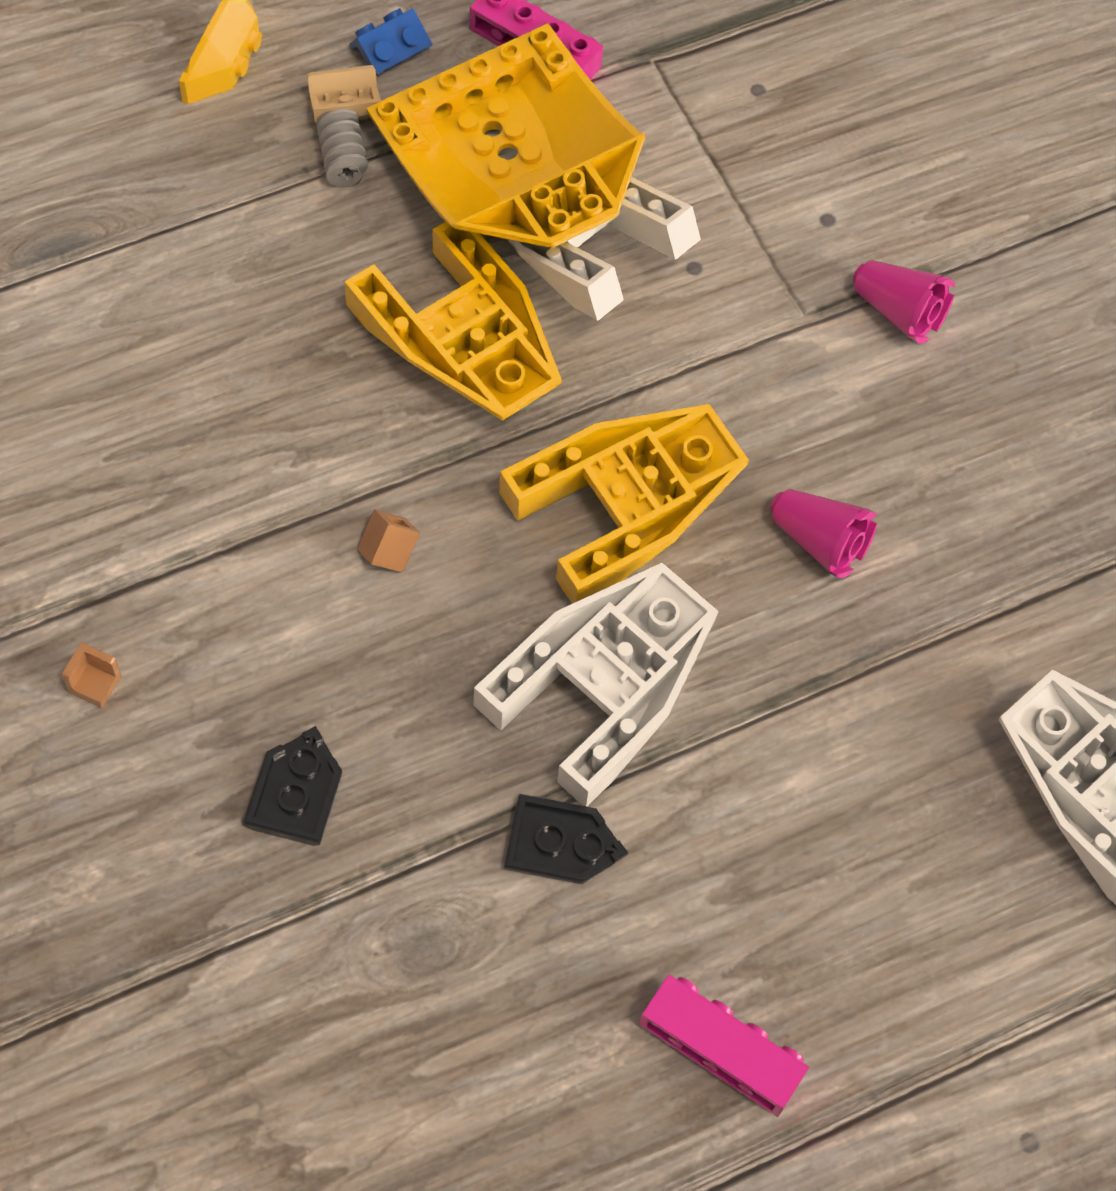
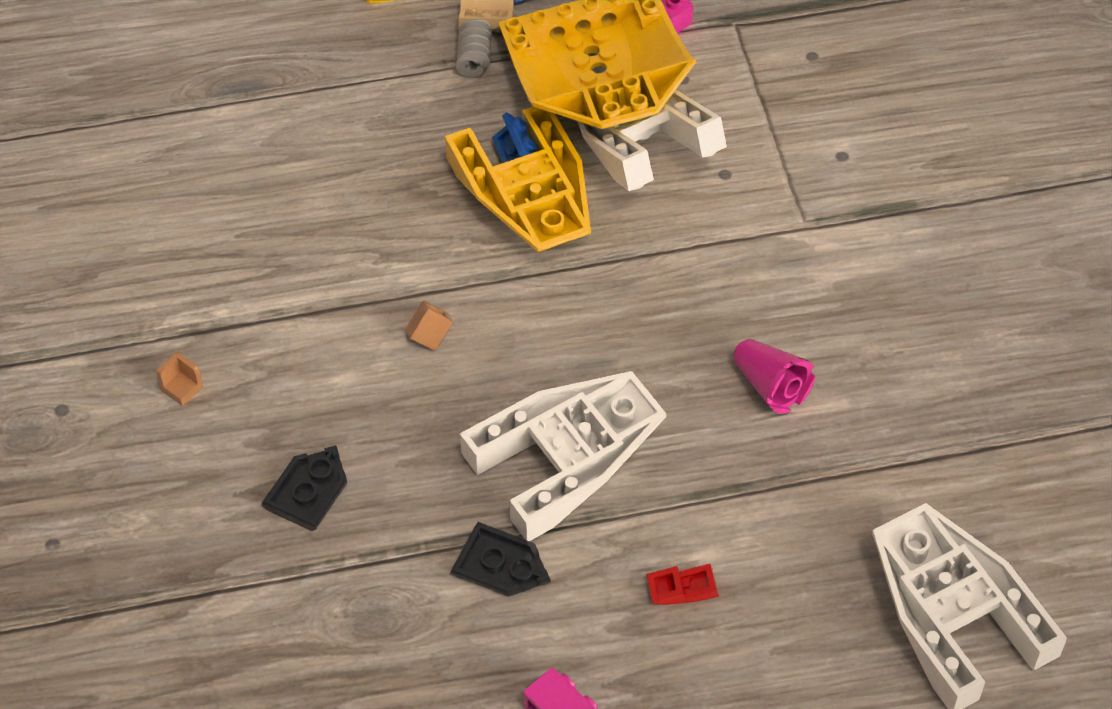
camera: 20 degrees right, 10 degrees down
(429, 272) = (513, 139): none -> blue bracket
(648, 474) = (636, 309): yellow wedge -> none
(786, 826) = (684, 586): none -> red slope
(905, 296) = (887, 218): dark pink cone -> none

